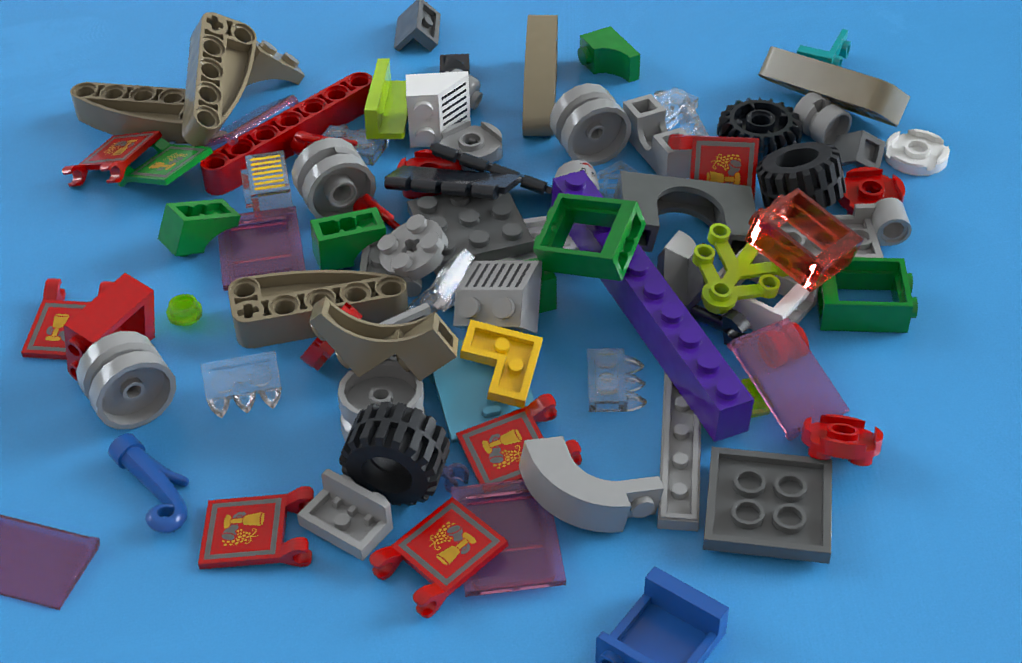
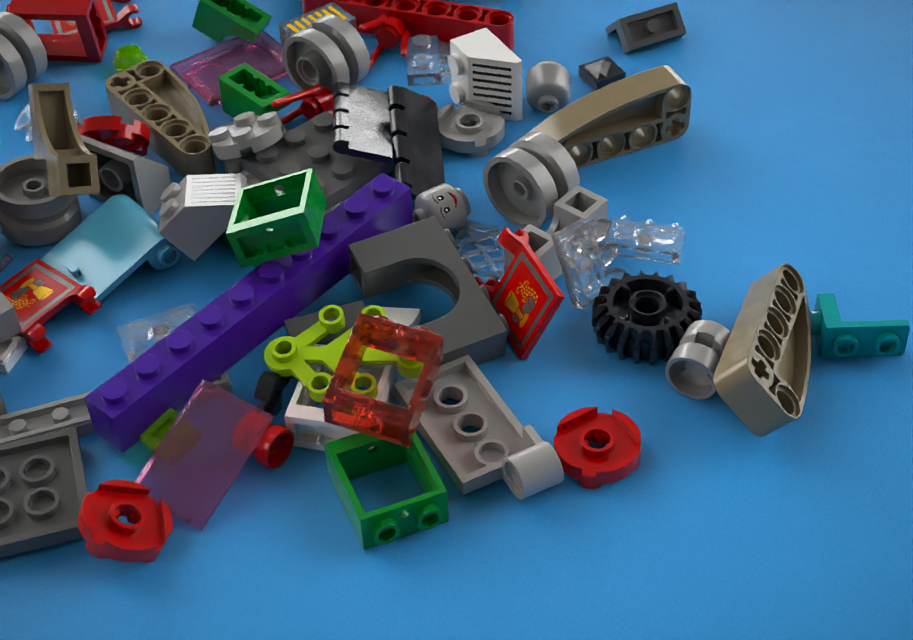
camera: 65 degrees right, 0 degrees up
(386, 105) = (522, 36): lime panel -> none
(441, 292) = (177, 170): clear plate -> none
(511, 354) = (123, 248): yellow plate -> none
(609, 53) = (706, 160): green arch -> none
(806, 166) = (548, 366): black tyre -> none
(860, 149) = (666, 412): dark grey panel -> none
(916, 152) = (725, 472): white tile -> none

